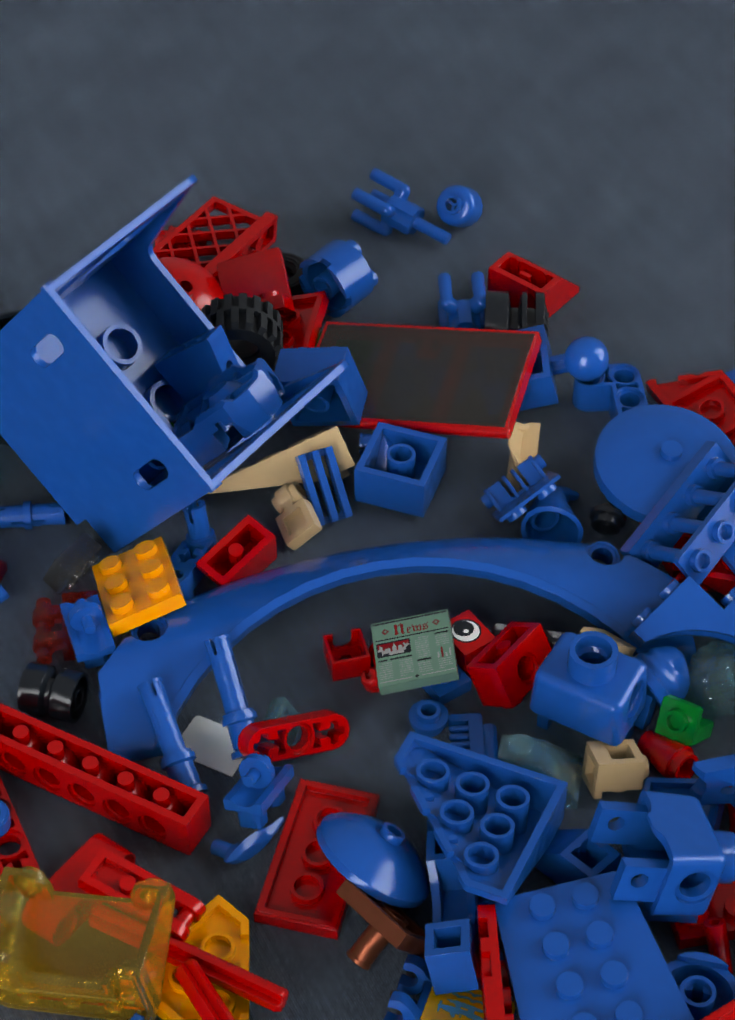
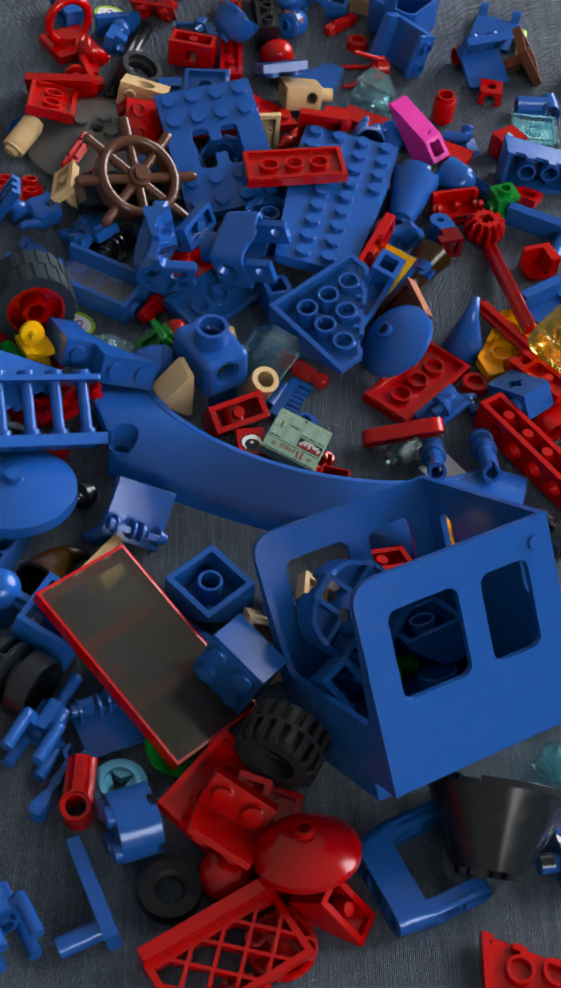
camera: 160 degrees left, 5 degrees up
(163, 851) = (526, 391): none -> blue brick
(238, 889) = (474, 383): none -> red tile
(283, 947) = (465, 336): none -> blue hat
(315, 233) = (97, 929): none -> blue piece
(370, 309) = (121, 771): none -> medium azure gear
(397, 291) = (79, 789): none -> red piece
(423, 290) = (41, 804): none -> blue piece
(509, 711) = (261, 379): none -> tan brick
(574, 428) = (54, 560): none -> dark brown hat

